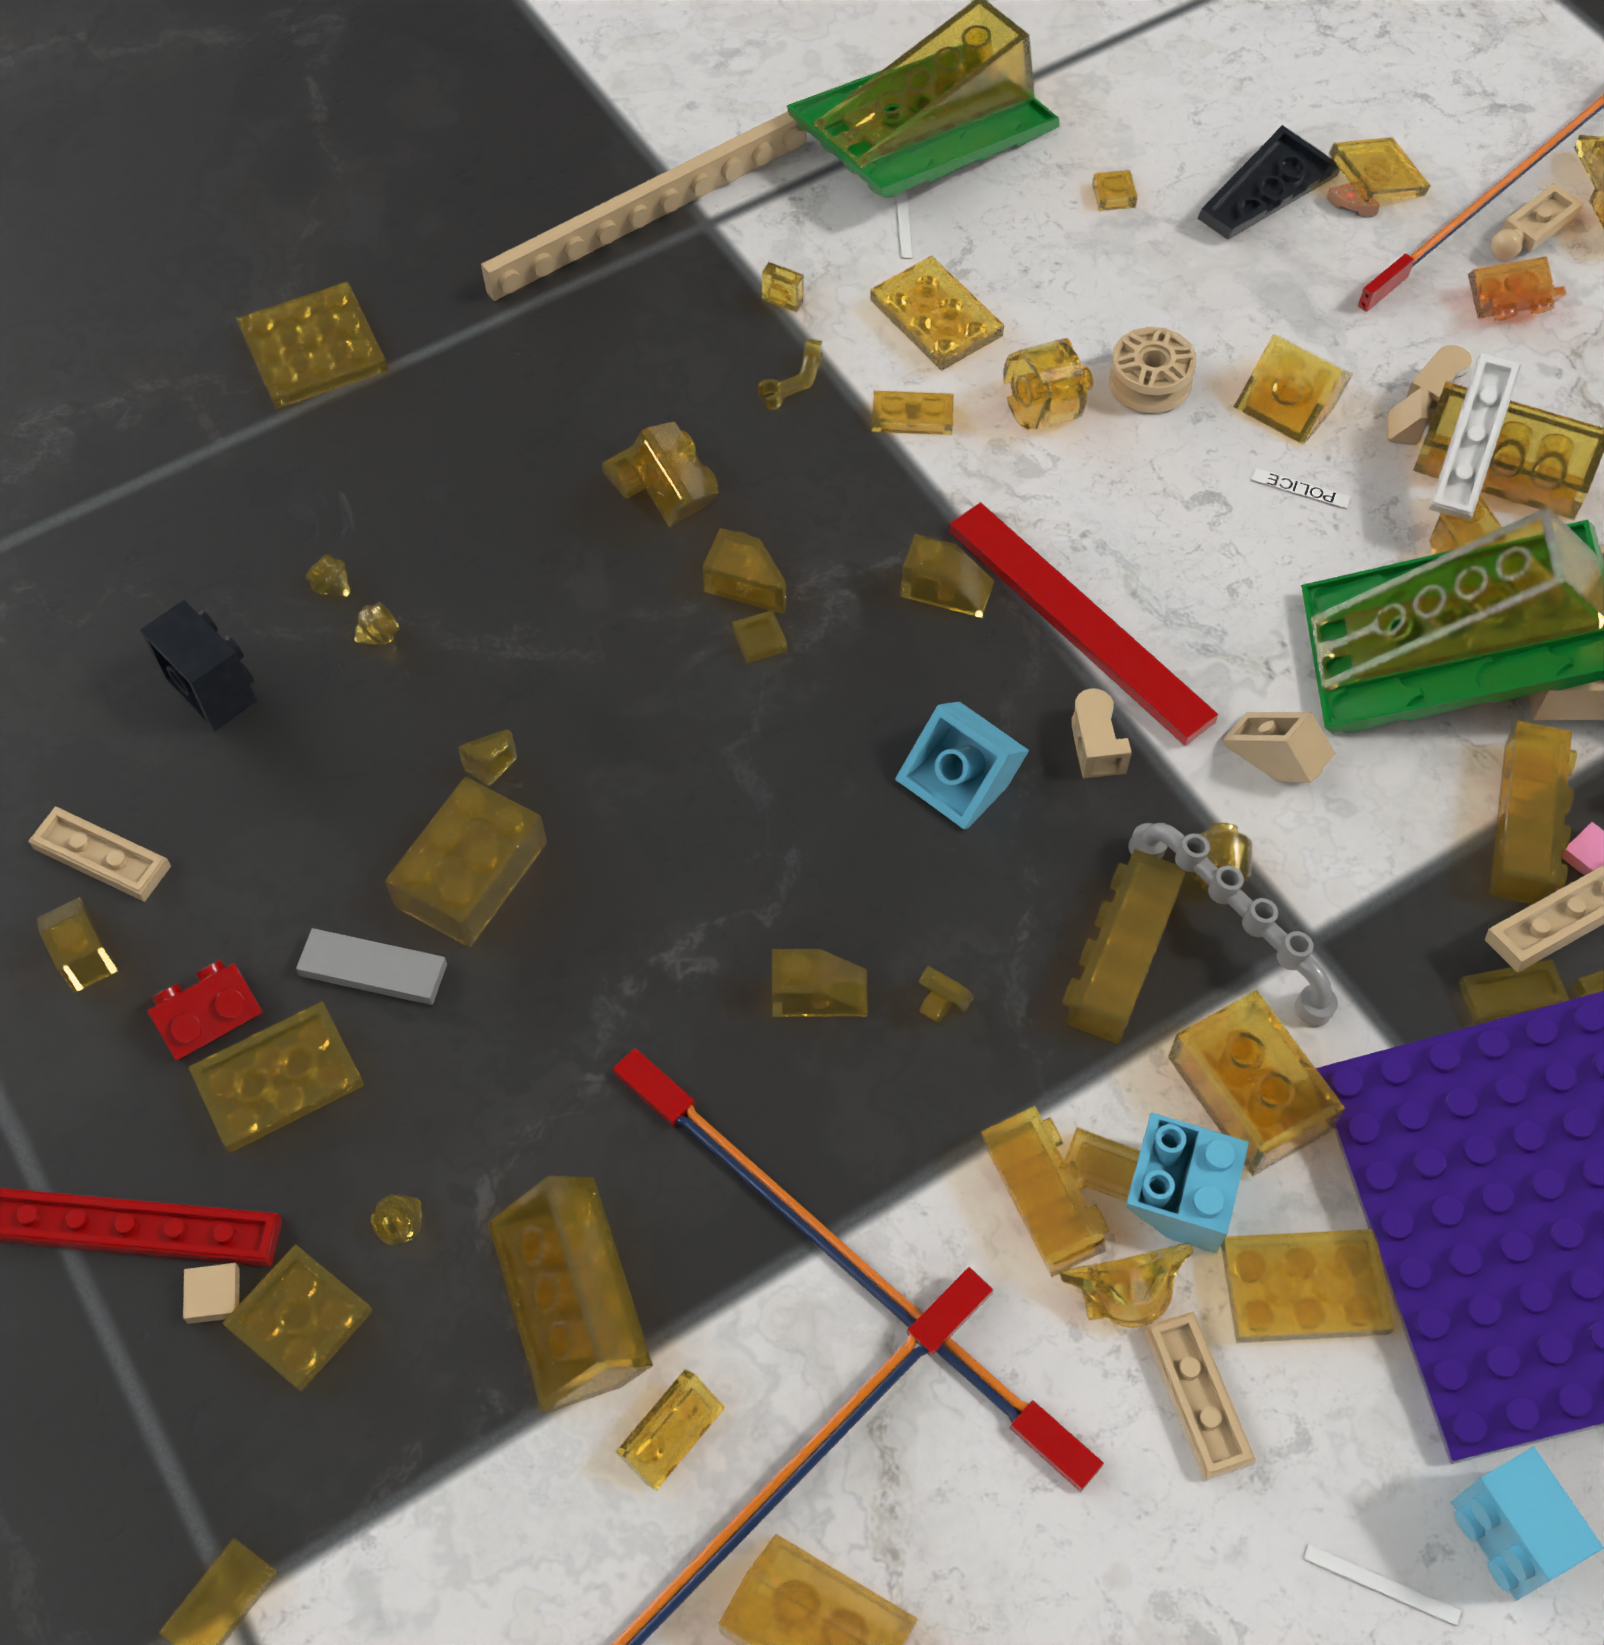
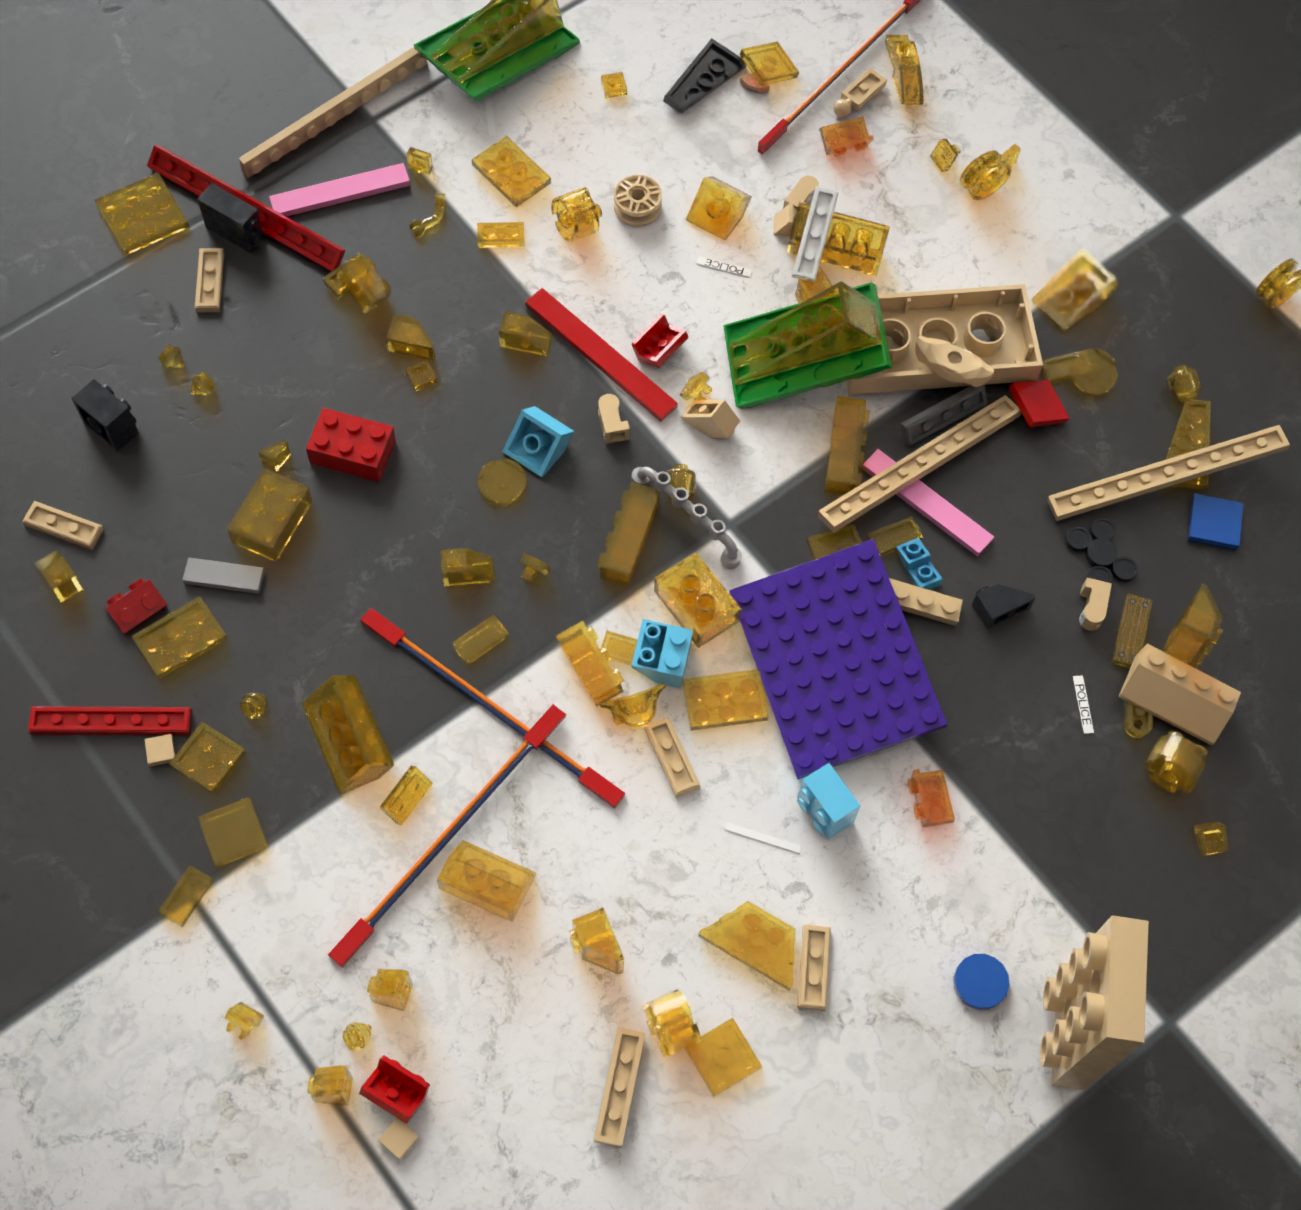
camera: 10 degrees left, 5 degrees up
(327, 1474) = (232, 832): none -> clear yellow tile
(410, 457) = (209, 280): none -> tan tile
(457, 355) = (231, 218): none -> black brick
(488, 346) = (272, 222): none -> red plate
(625, 747) = (351, 444): none -> red brick
(644, 327) = (340, 190): none -> bright pink tile
(835, 1125) = (480, 639): none -> clear yellow tile
(892, 833) = (502, 482): none -> clear yellow tile
(1185, 606) = (658, 342): none -> red bracket
(1250, 687) = (694, 387): none -> clear yellow tile

